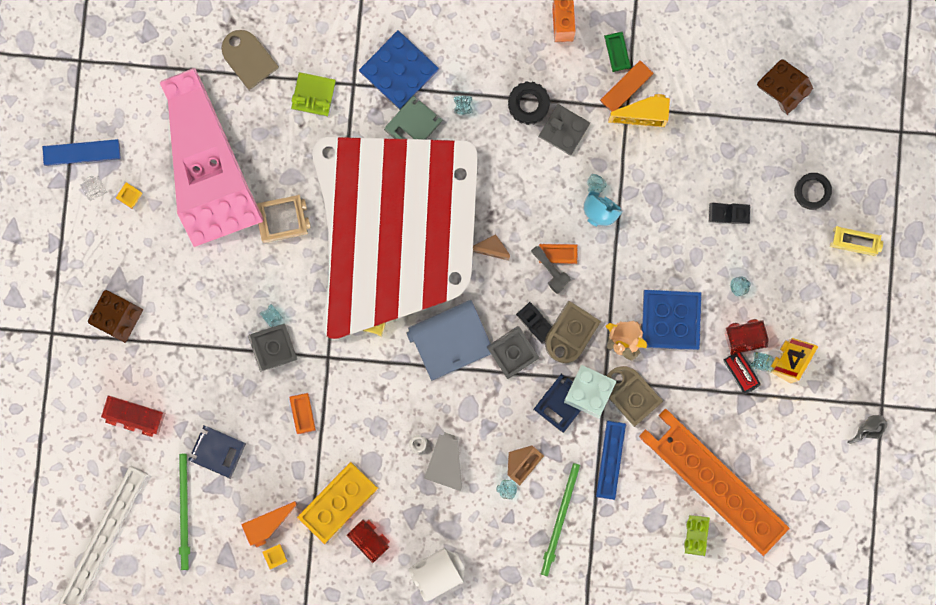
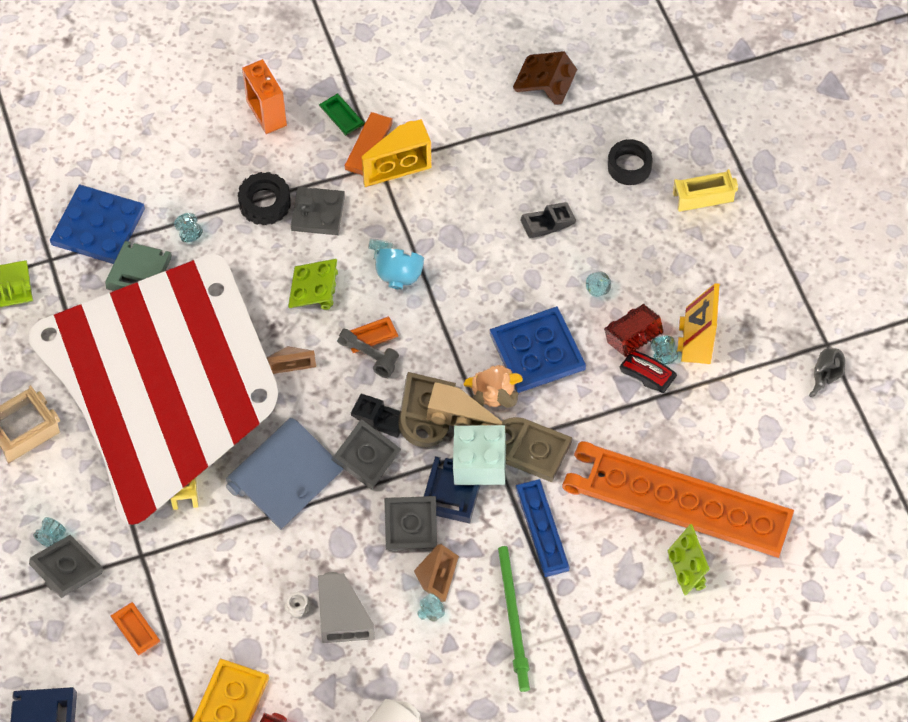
camera: 20 degrees left, 25 degrees down
(520, 419) = (410, 523): none -> dark grey hinge
(534, 193) = (314, 284): none -> lime hinge
(590, 346) = (456, 408): none -> tan slope

